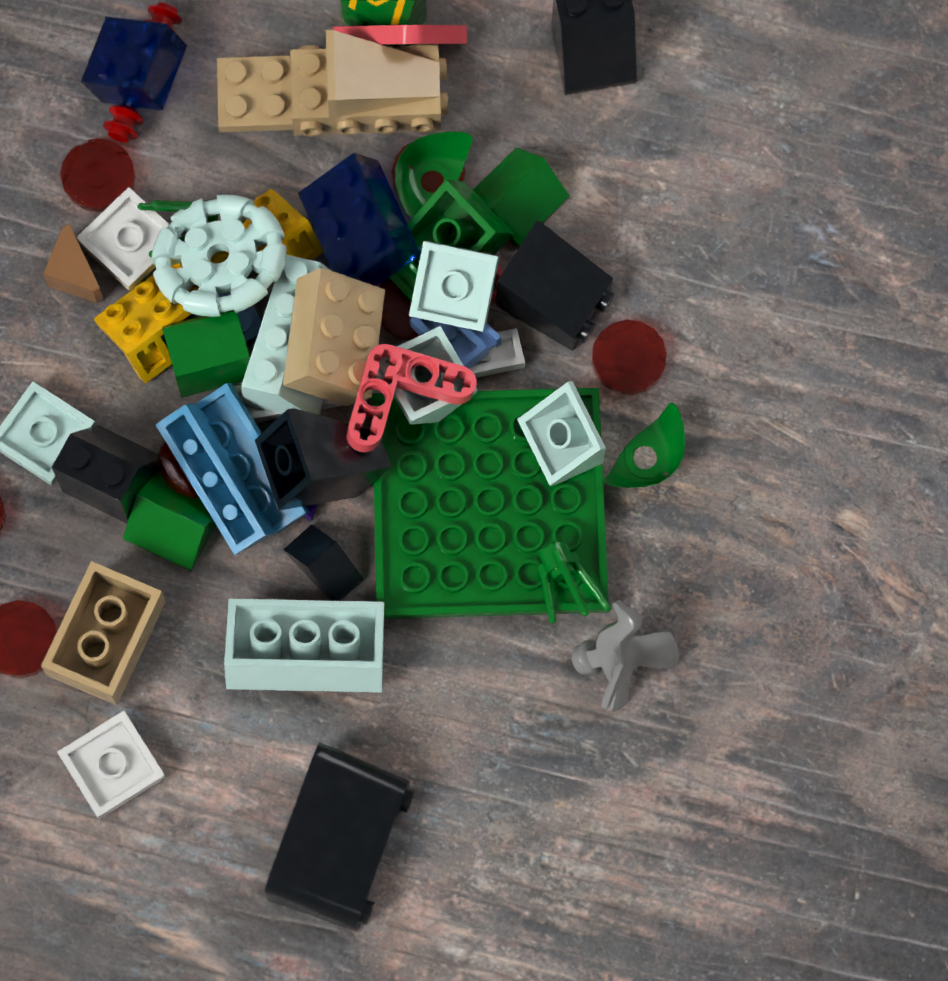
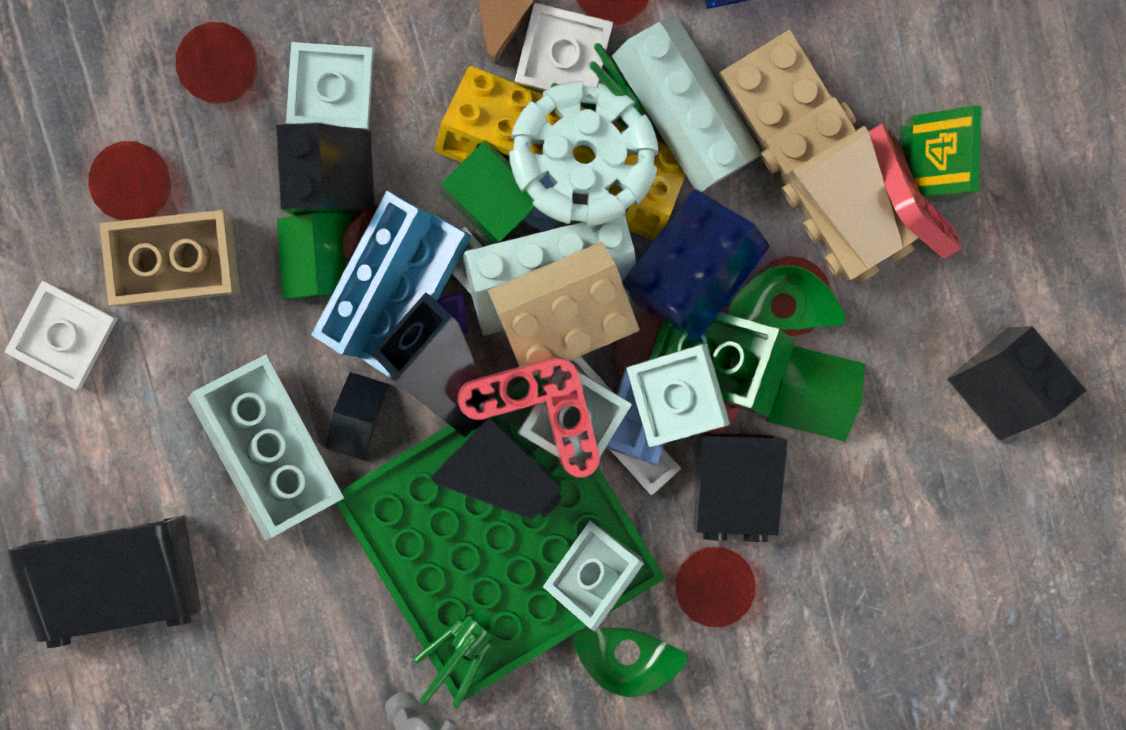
camera: 65 degrees right, 15 degrees up
(227, 166) = (686, 103): none -> light aqua slope
(435, 455) = (500, 473): none -> black slope

